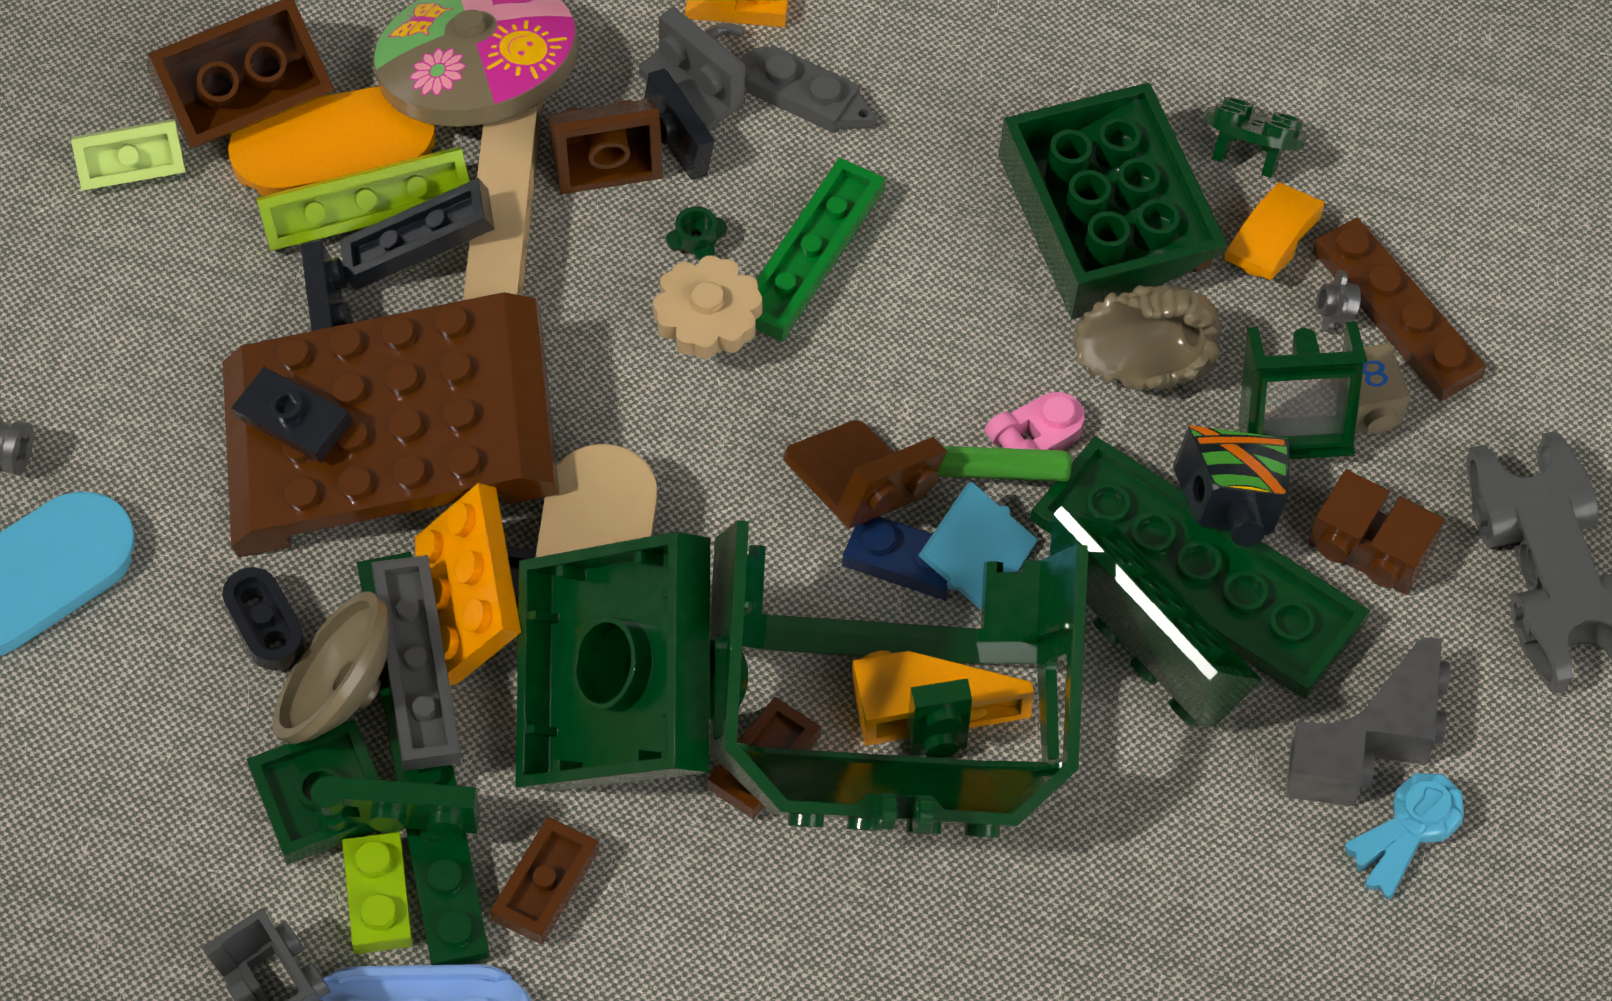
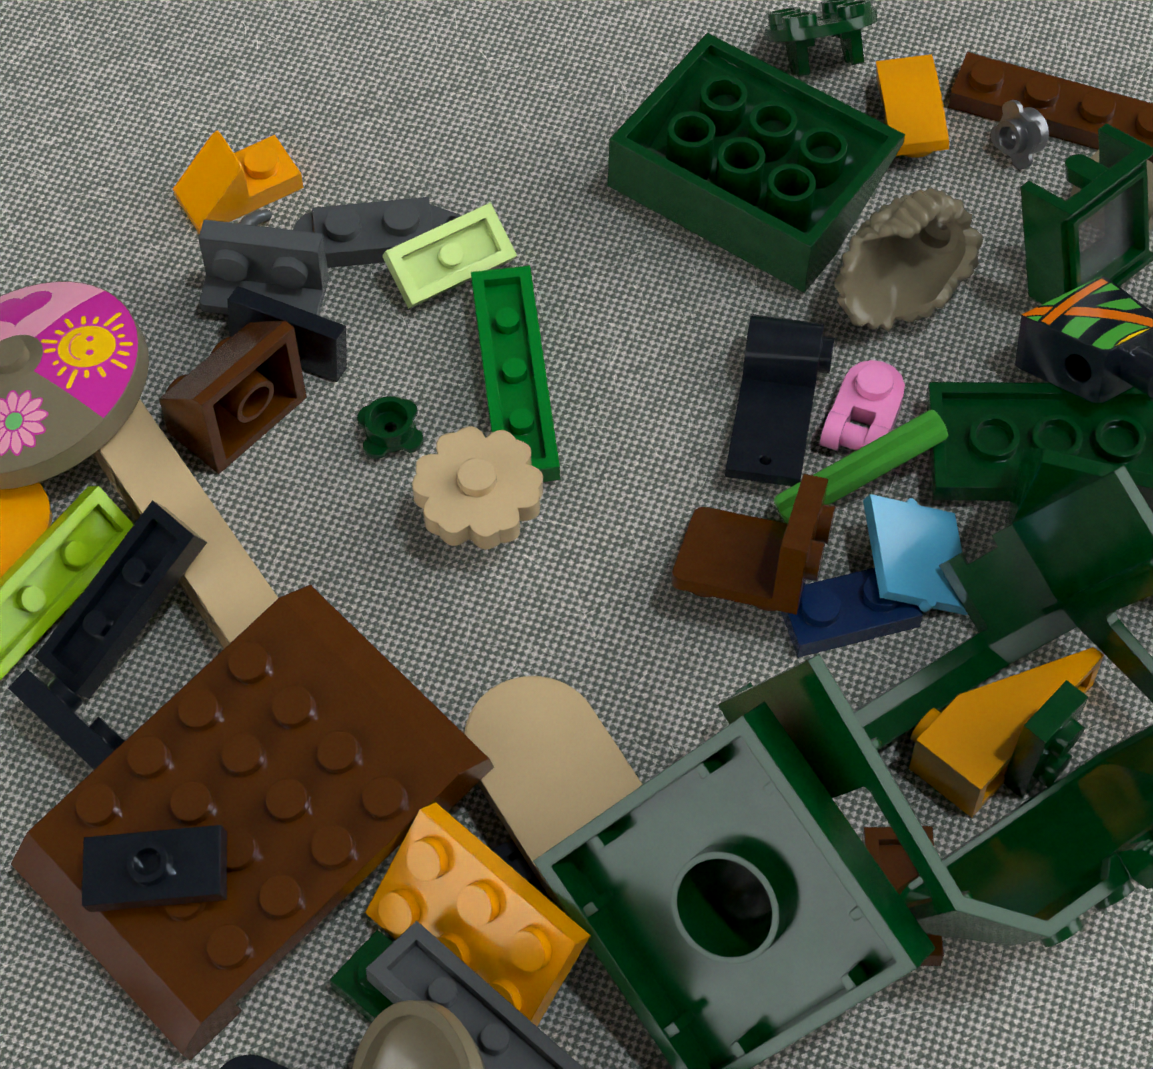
camera: 35 degrees left, 0 degrees up
(831, 133) = (449, 255): none -> yellowish green plate
(1000, 366) = (777, 399): none -> black door

